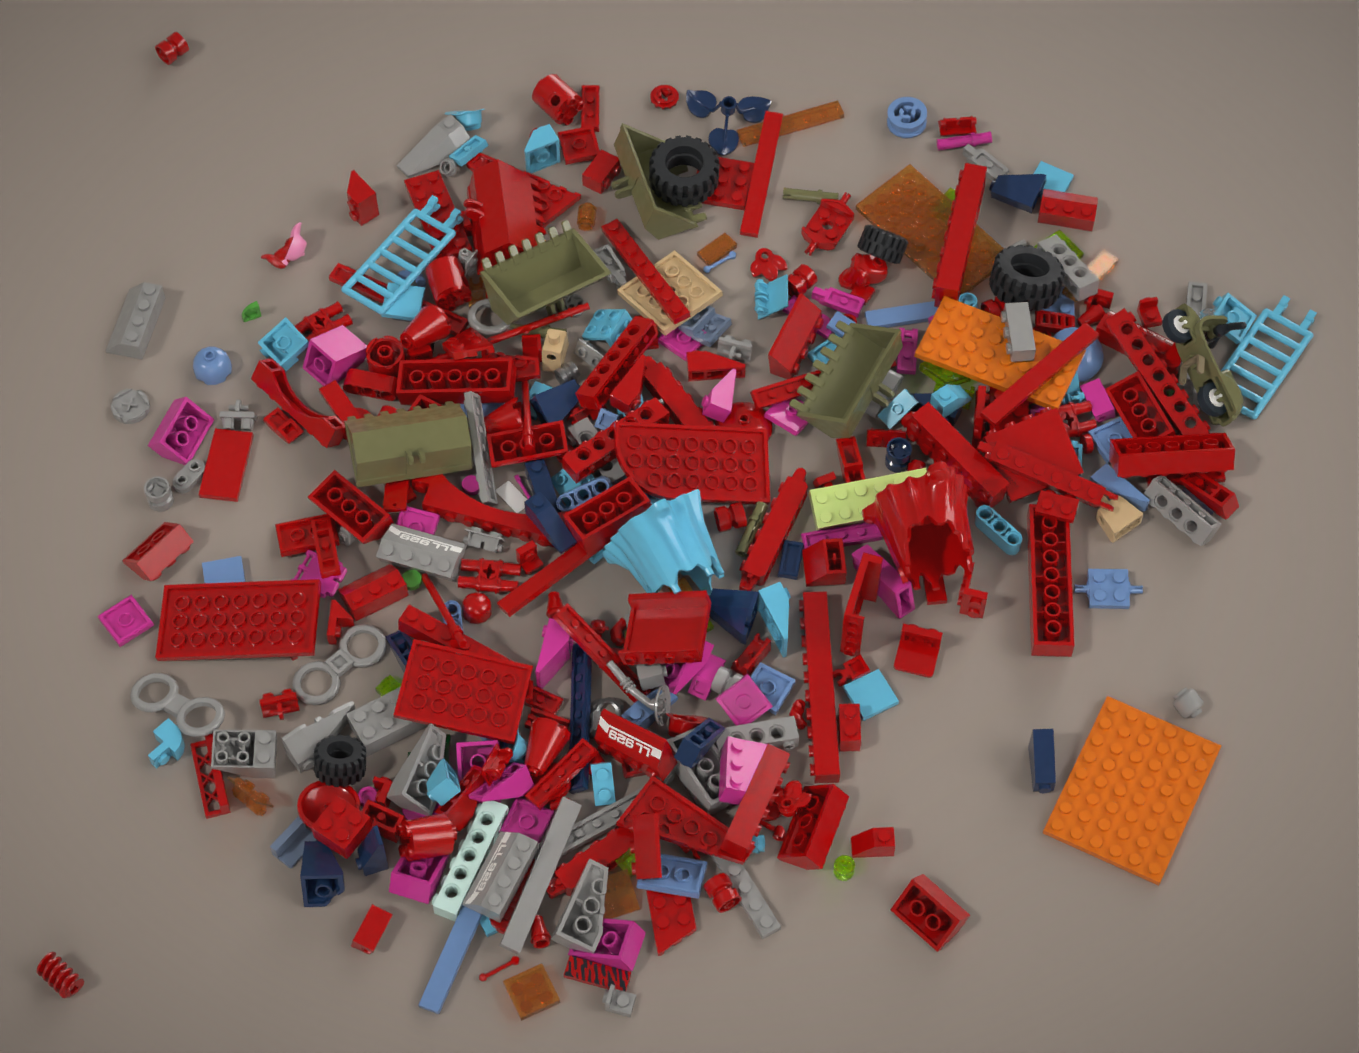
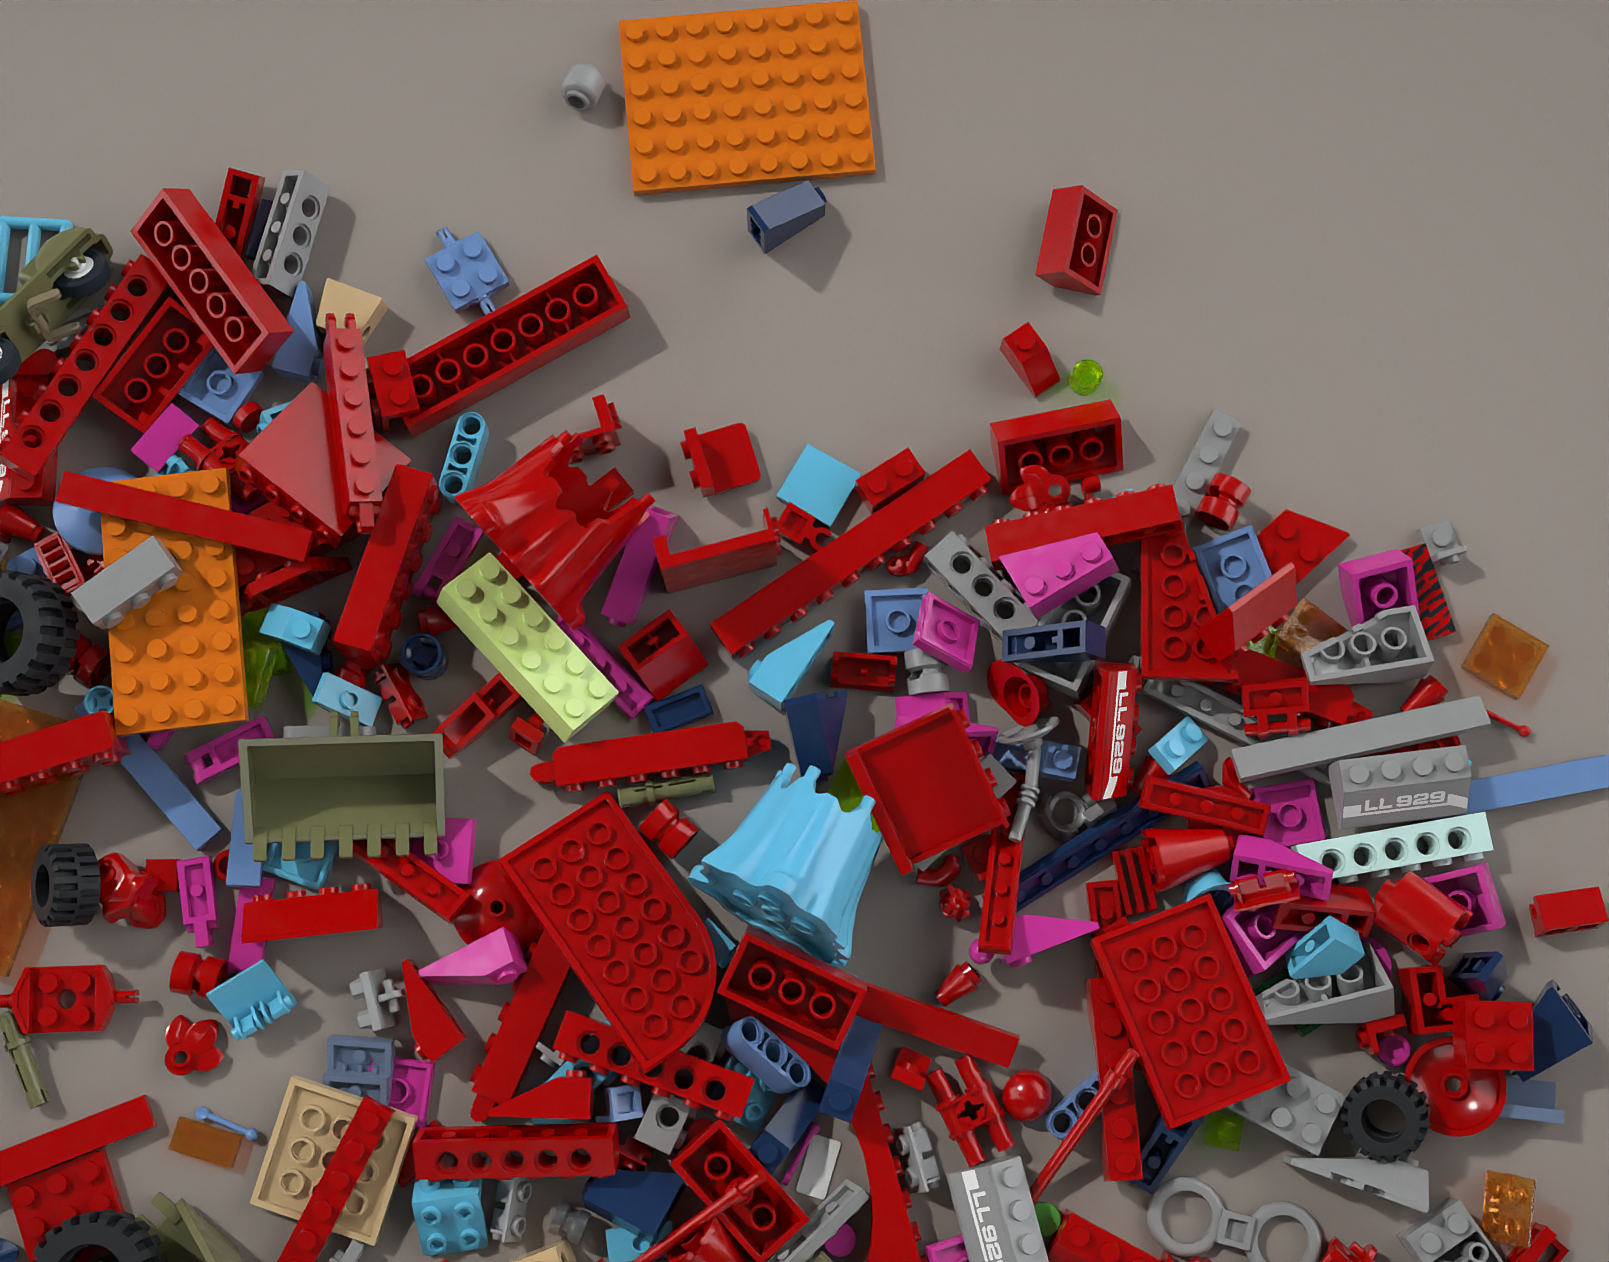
camera: 125 degrees left, 20 degrees up
(593, 838) = (1275, 697): none -> red plate

